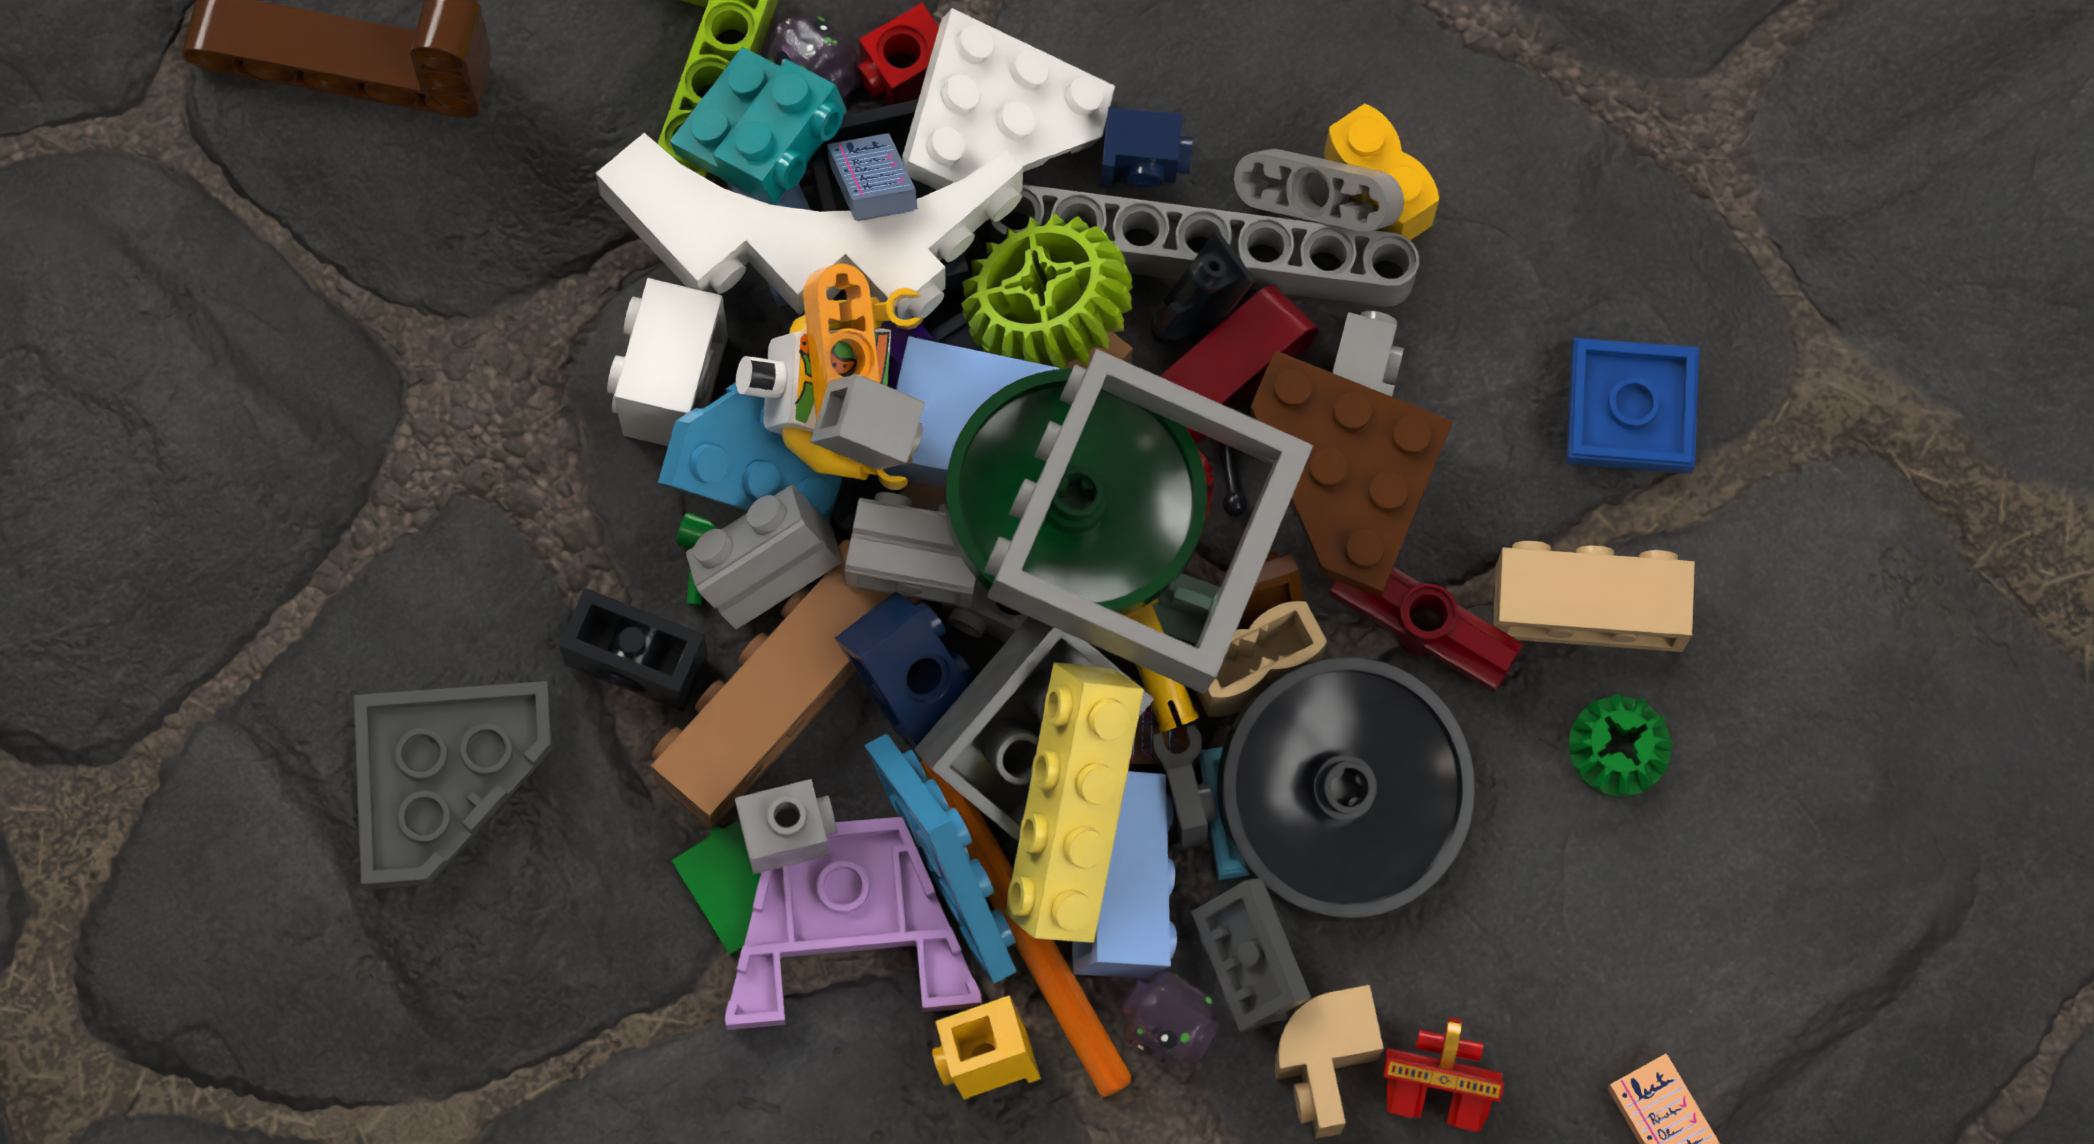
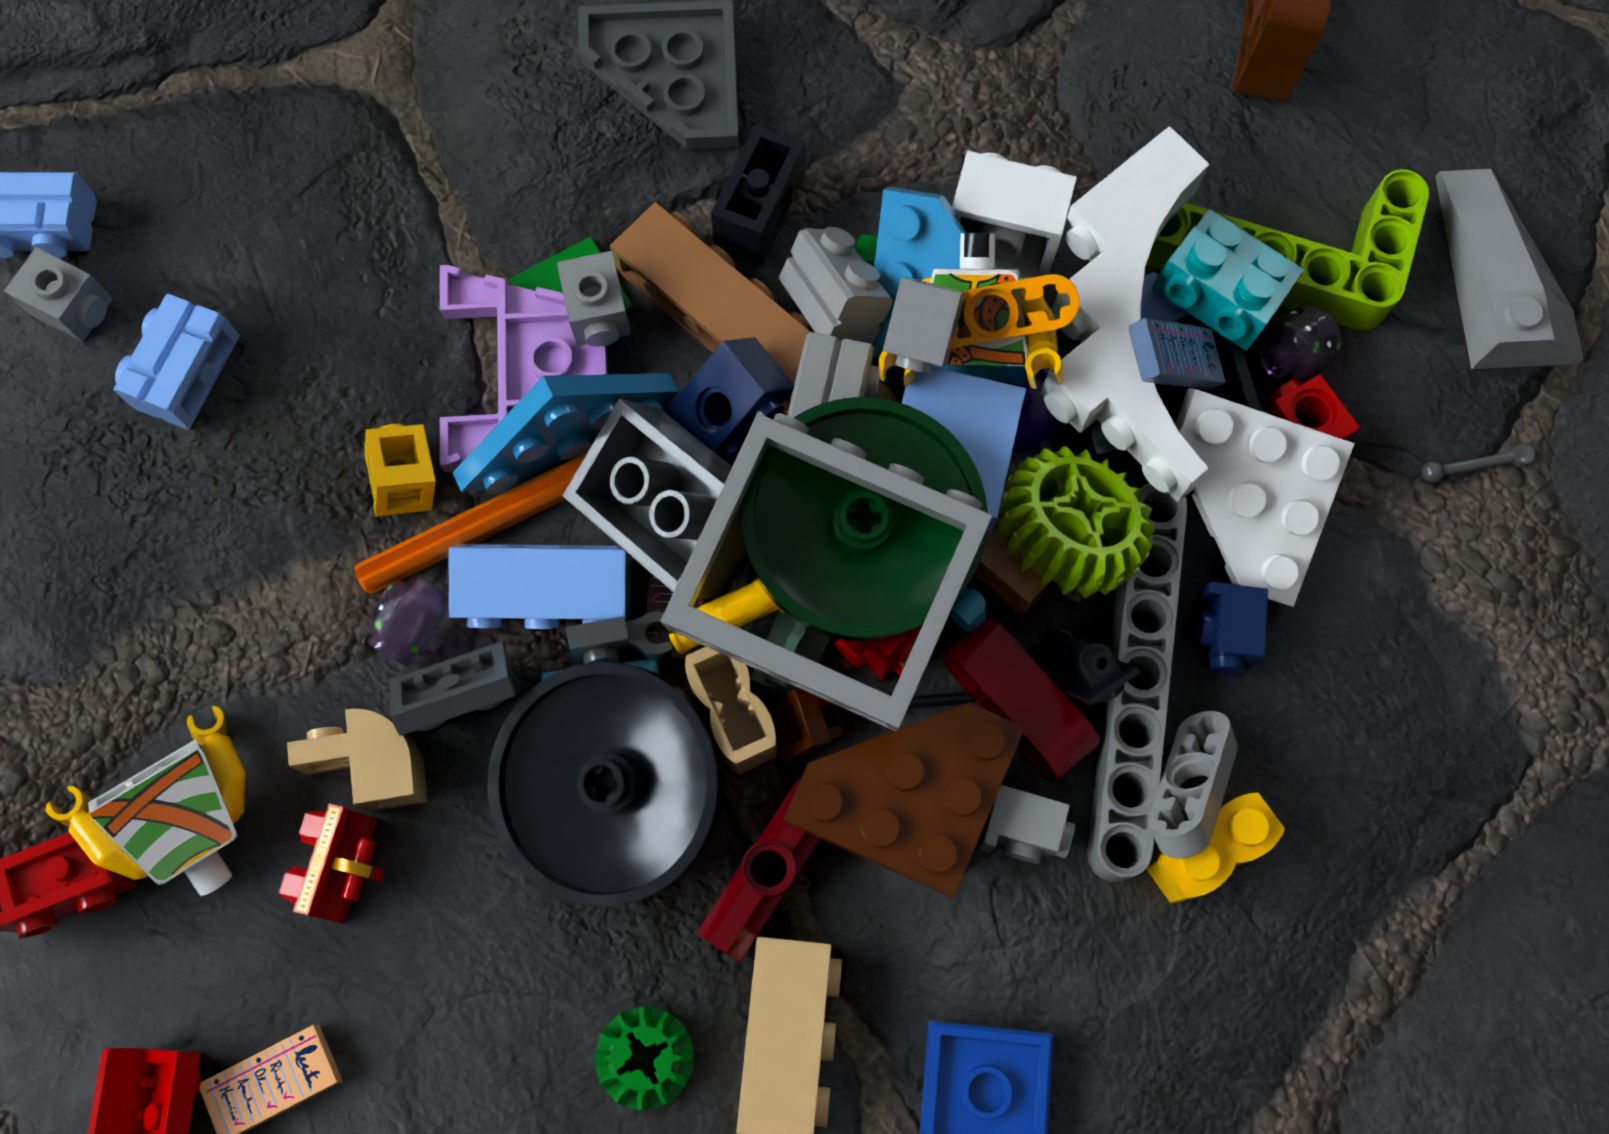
camera: 95 degrees right, 0 degrees up
(1073, 802) = (585, 521): light yellow brick -> none

